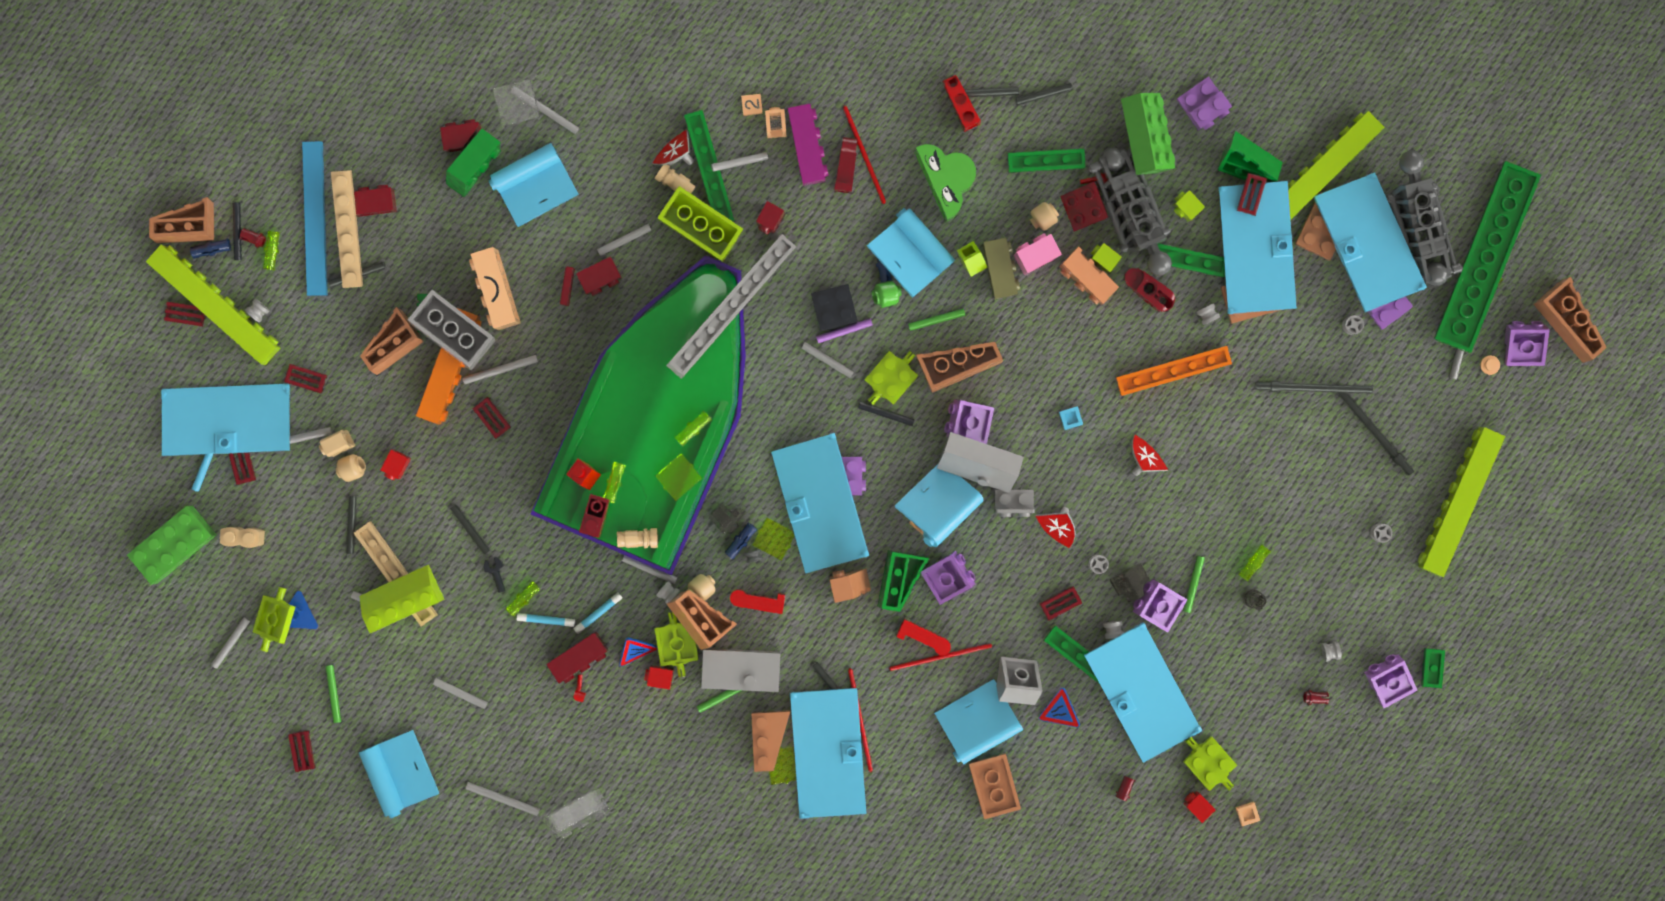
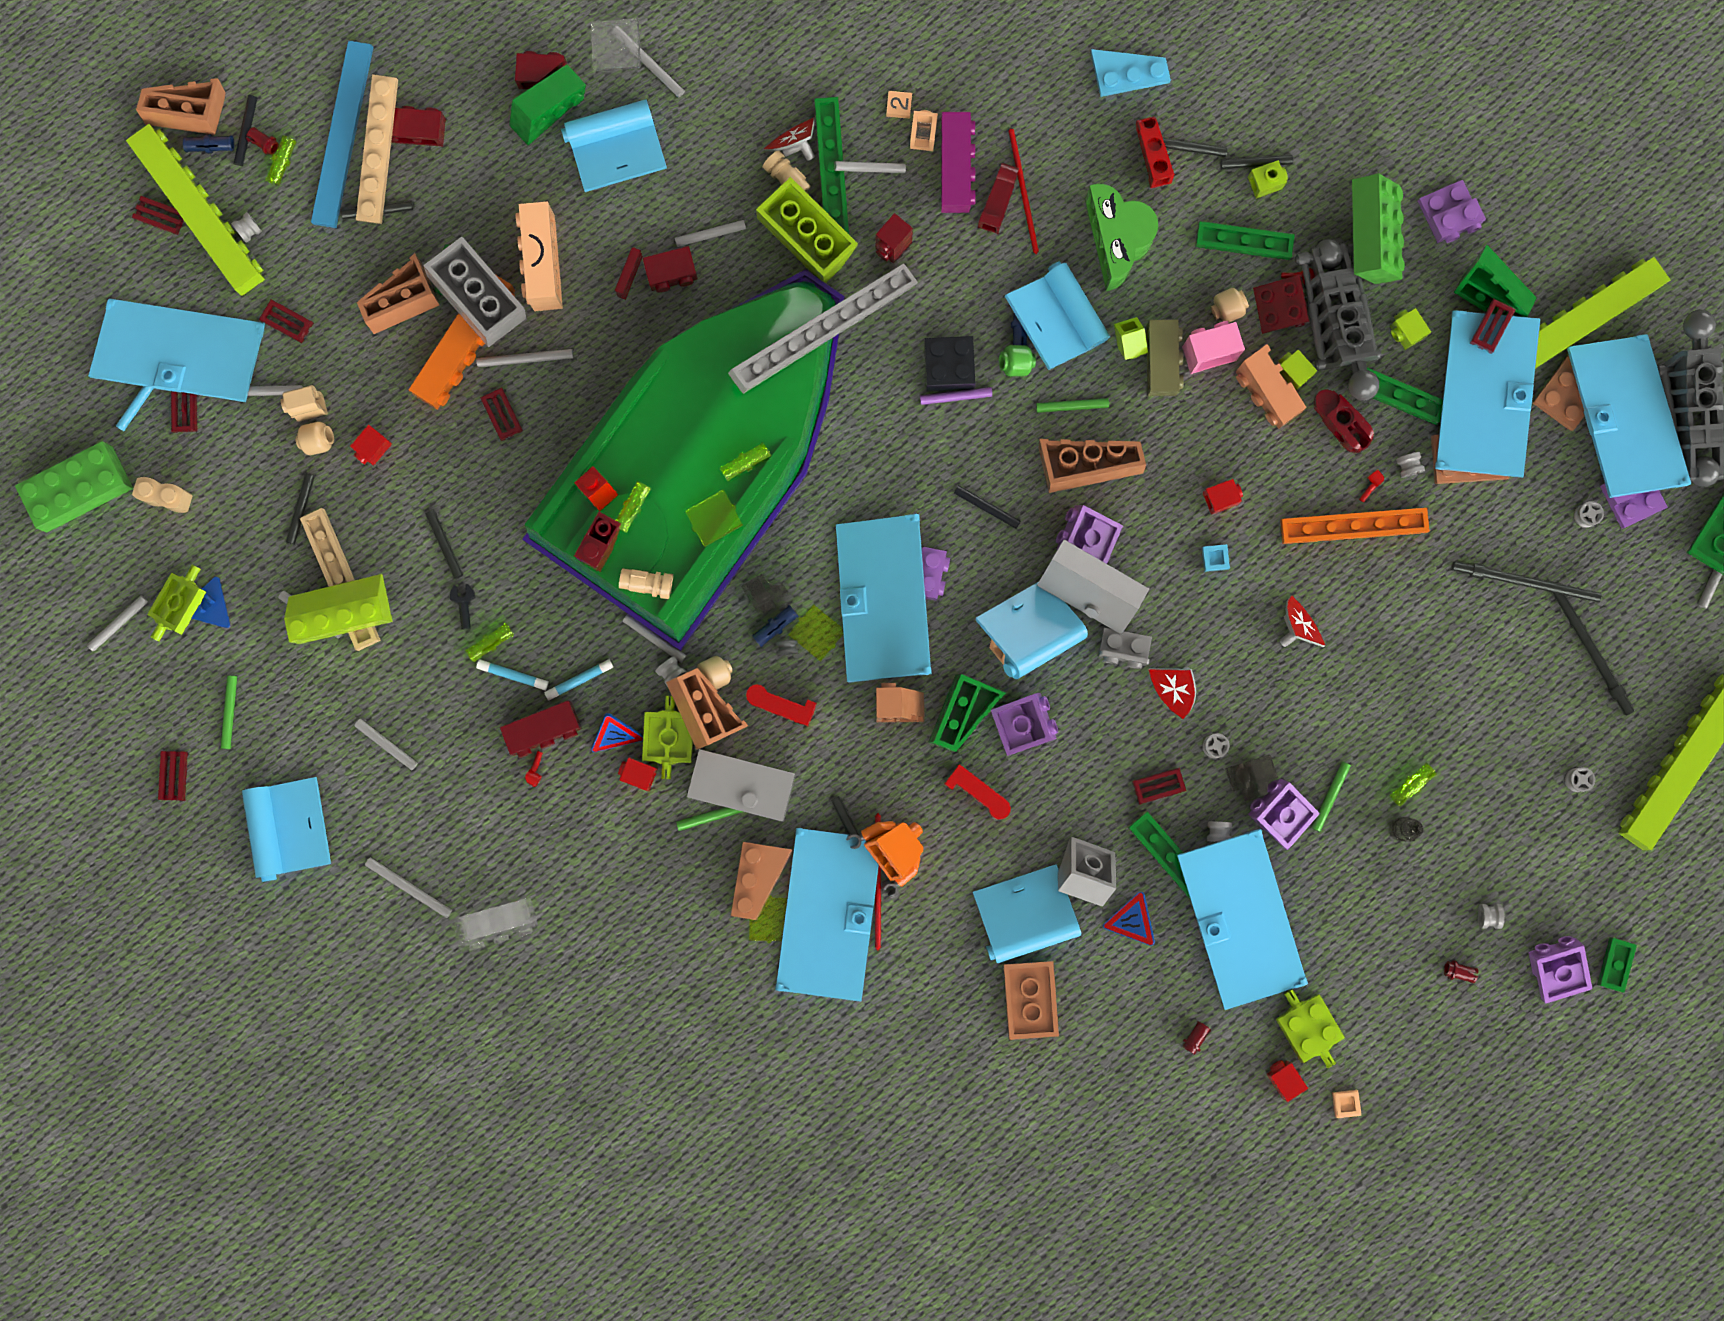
camera: 10 degrees right, 5 degrees down
(828, 360) = (928, 427): light grey bar -> none
(868, 695) = (894, 849): none -> orange torso
(891, 377) = (1002, 464): lime plate -> none
(927, 41) = (1127, 72): none -> medium azure wing
(939, 657) = (1014, 822): red axle -> none
(1055, 107) = (1268, 179): none -> lime brick
(1067, 369) = (1223, 496): none -> red brick
(1184, 331) = (1376, 479): none -> red hand

